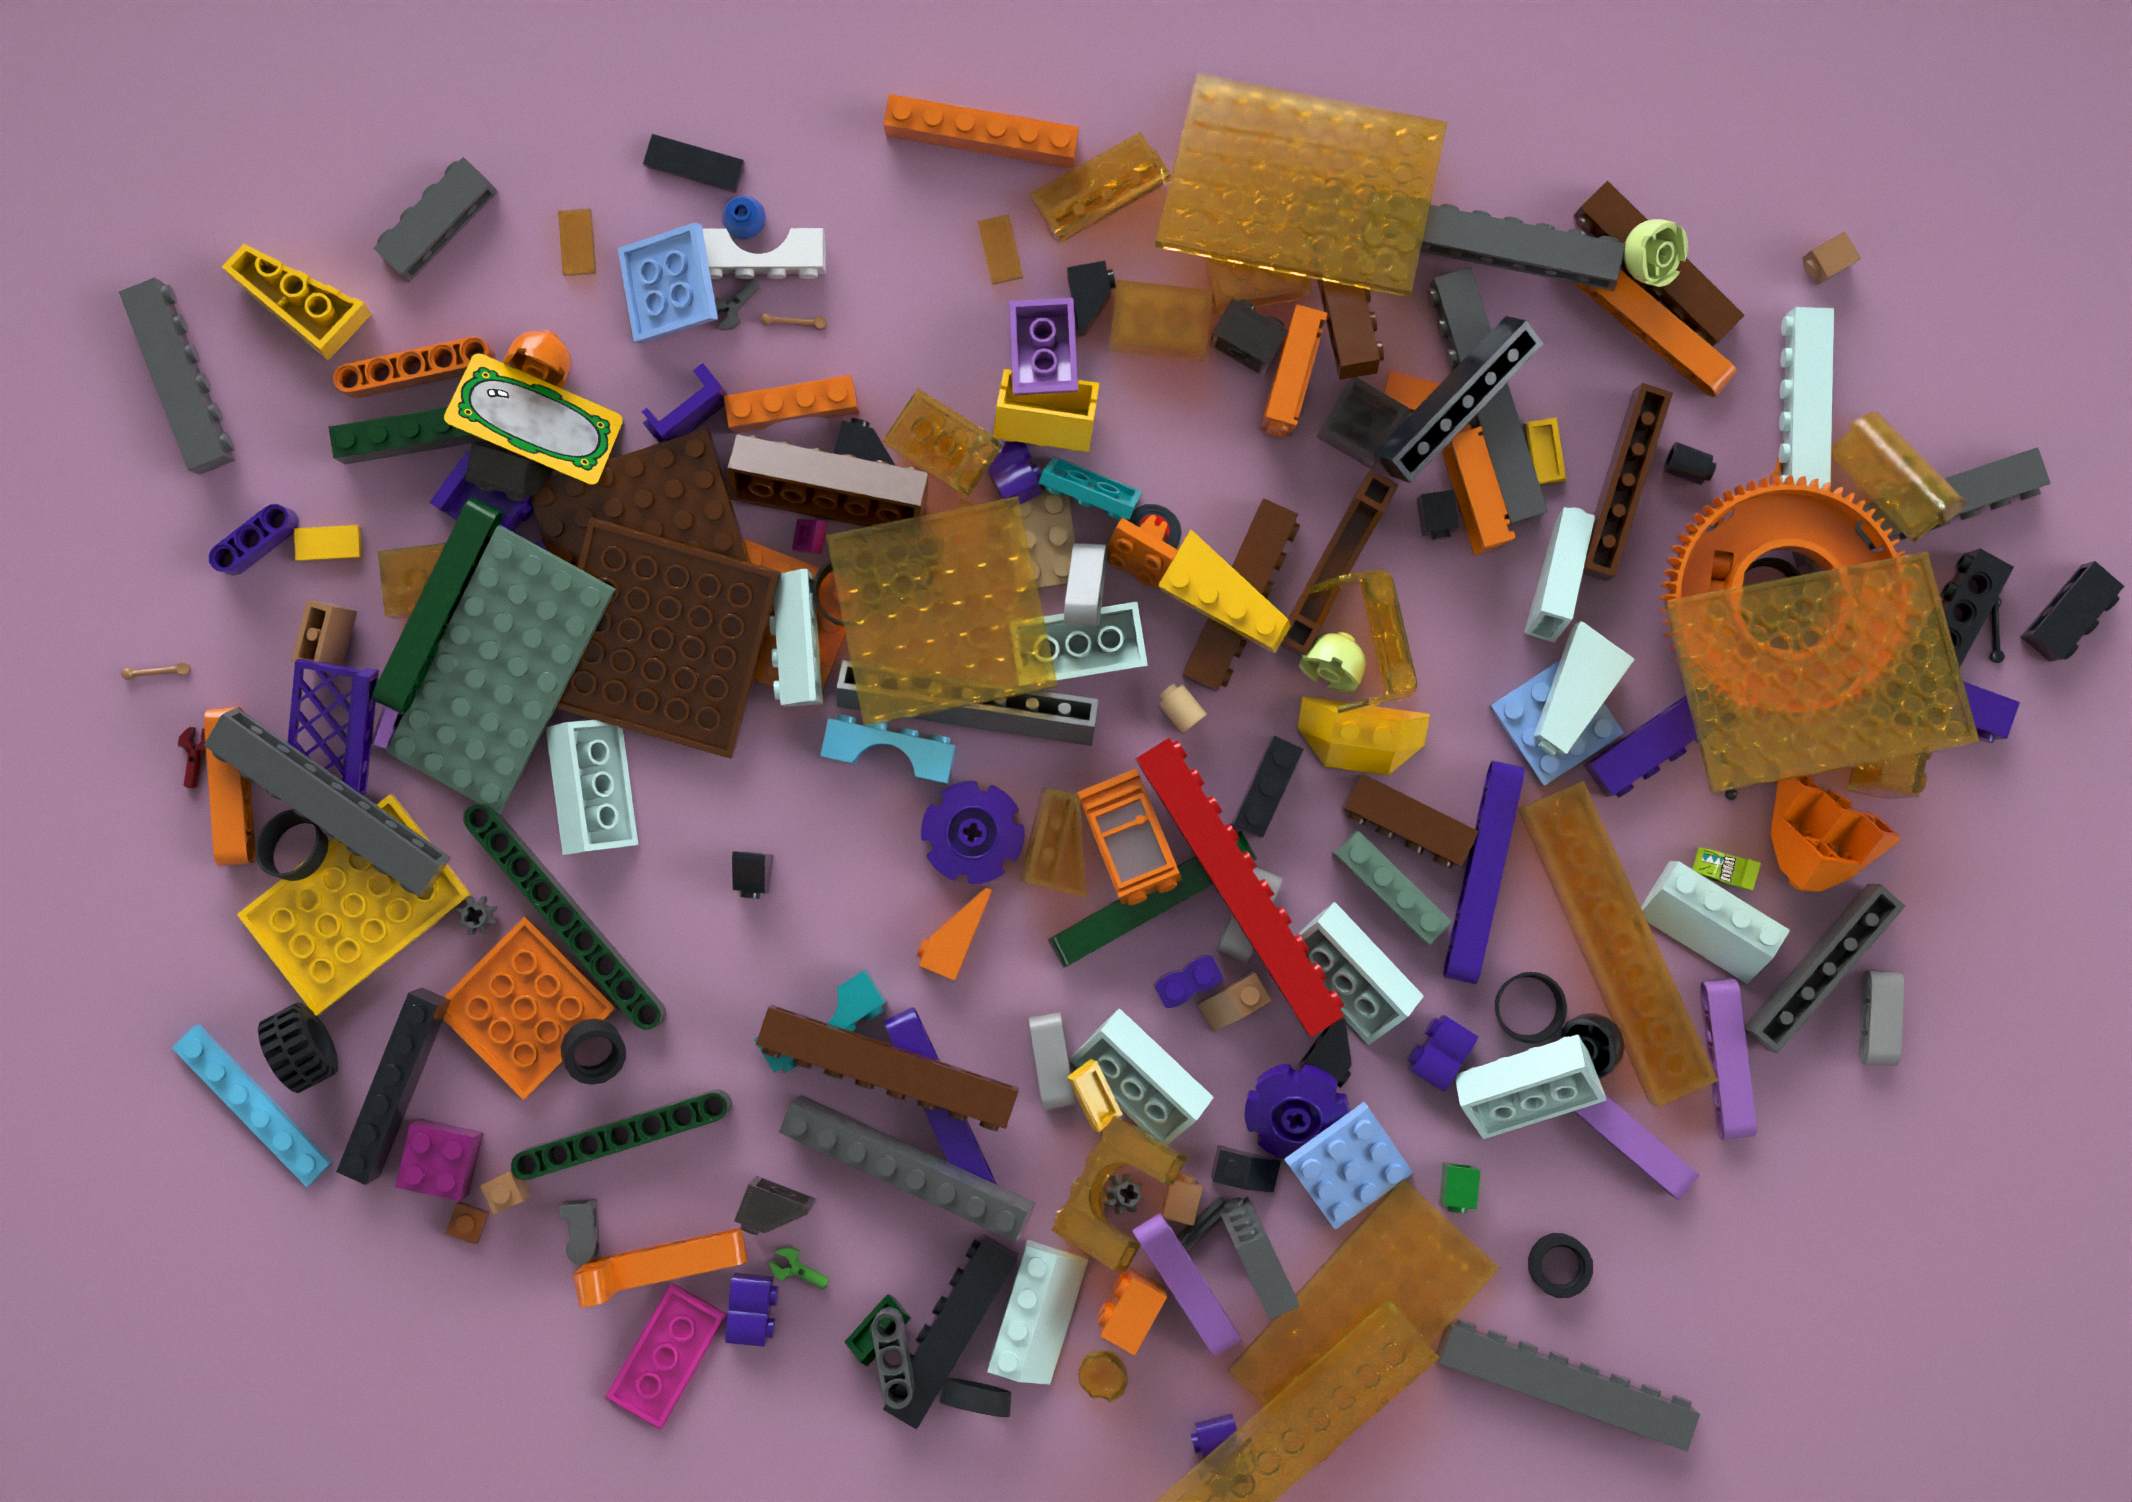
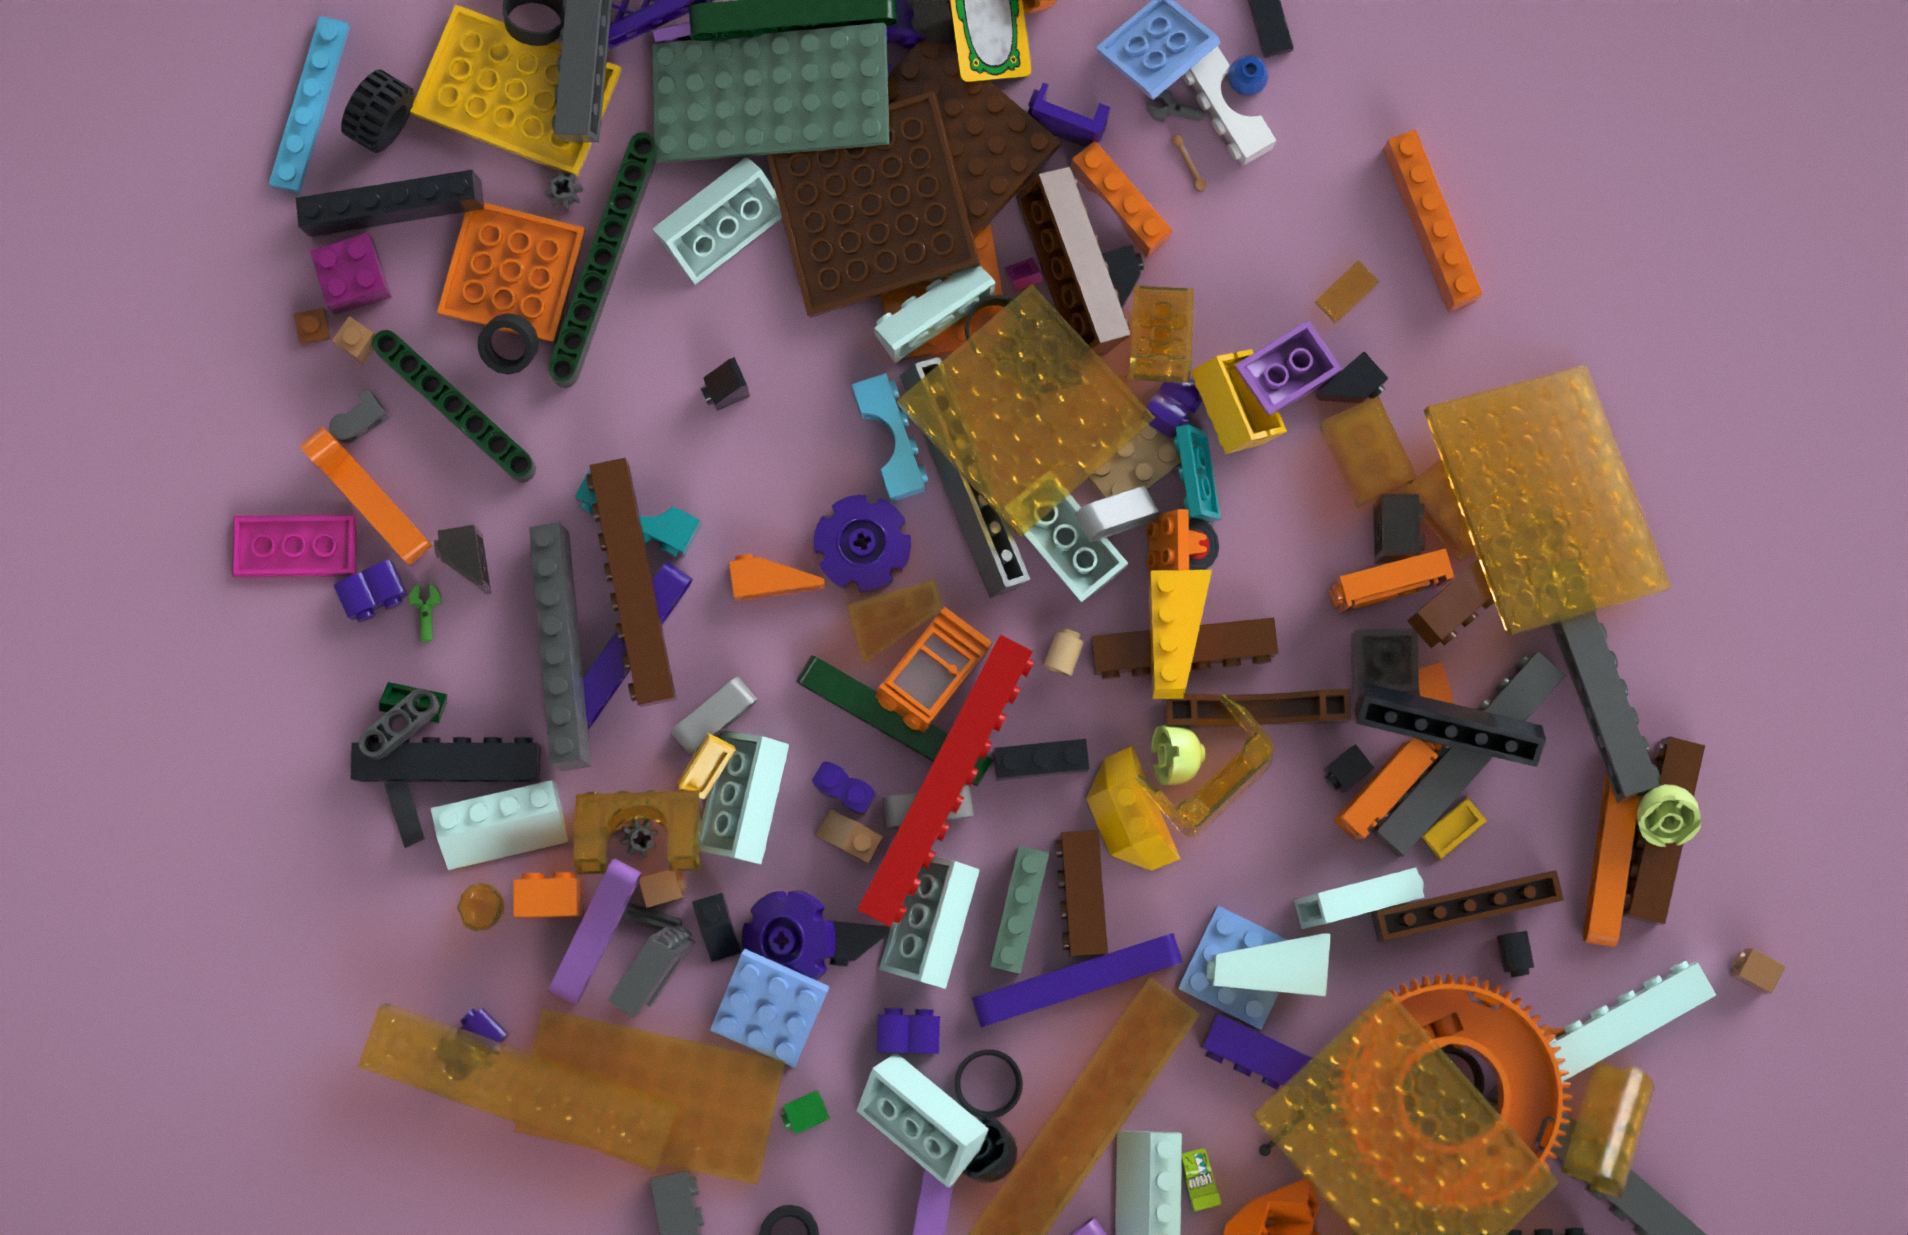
camera: 55 degrees right, 5 degrees down
(1100, 187) = (1445, 341): clear yellow brick -> none

